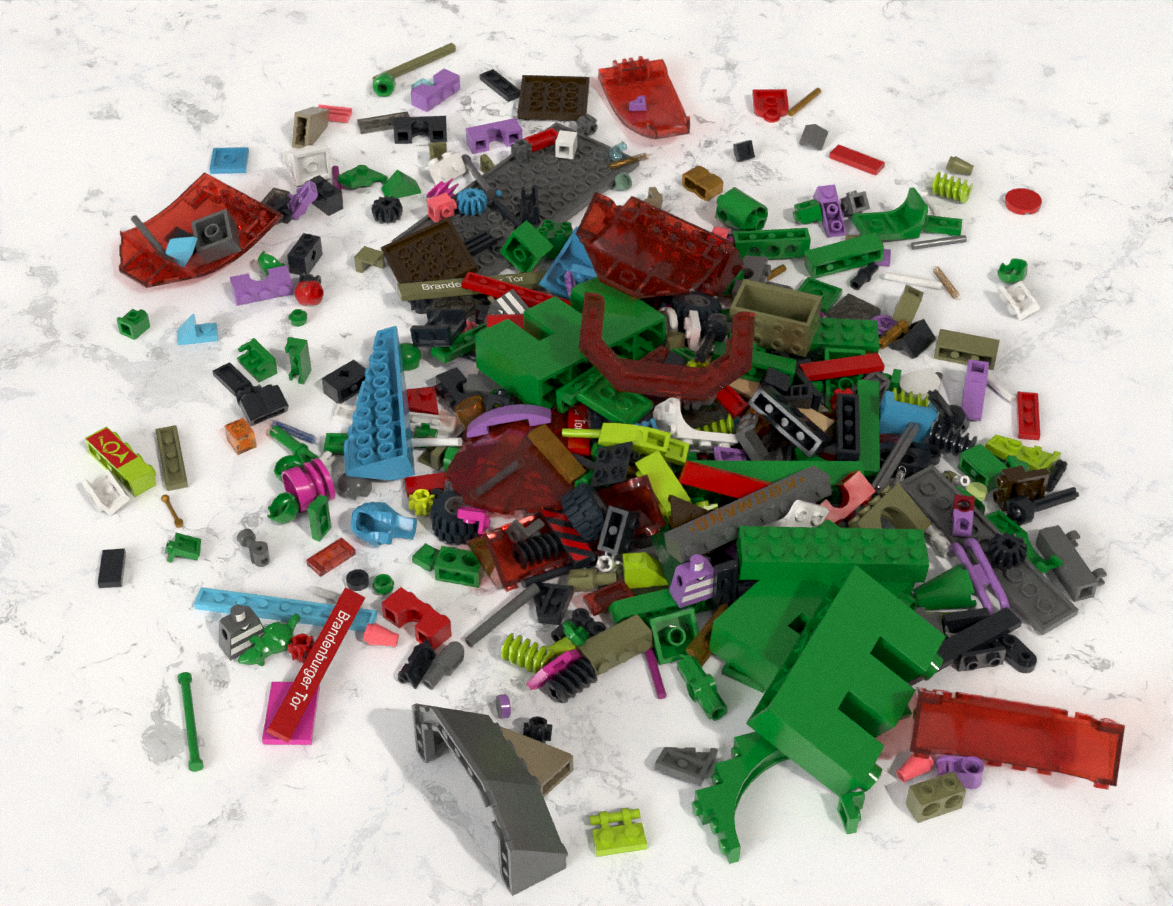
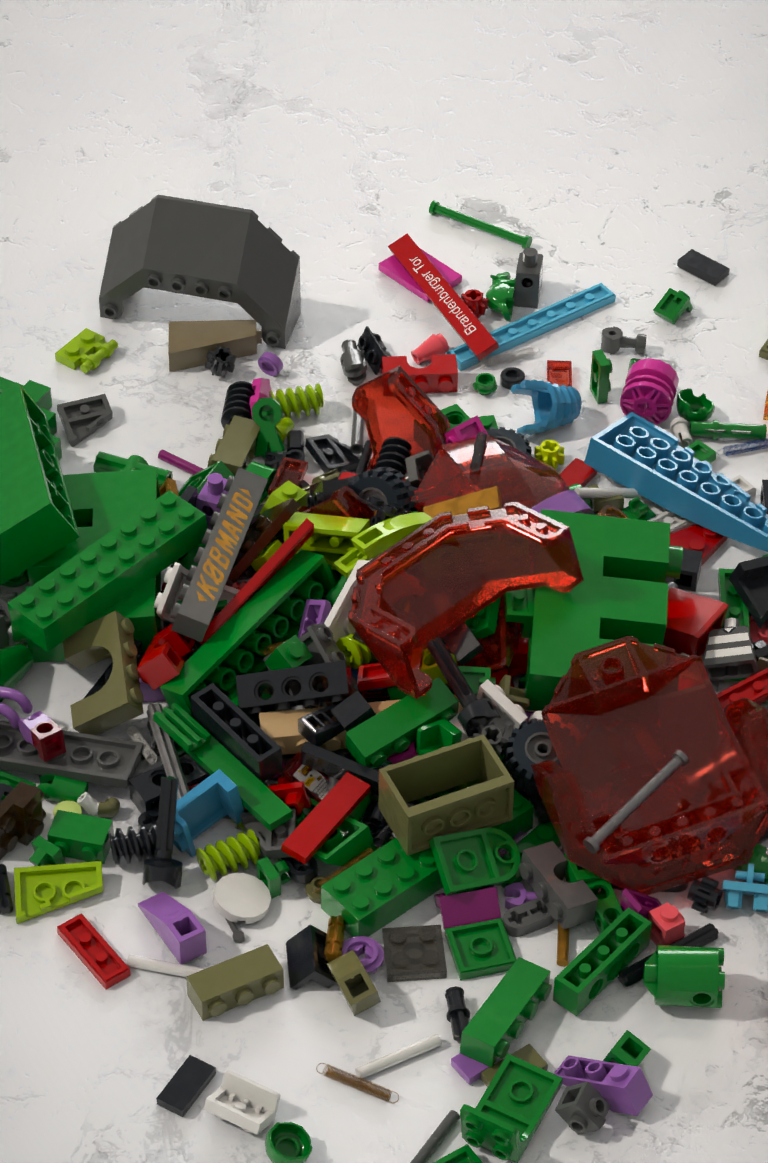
camera: 135 degrees right, 0 degrees up
(178, 521) = (715, 327): pearl gold hinge -> none
(682, 241) = (592, 843): none -> flat silver bar
(771, 442) = (289, 655): none -> green brick
(874, 445) = (185, 726): none -> green tile
(1036, 329) = (186, 1085): none -> black tile

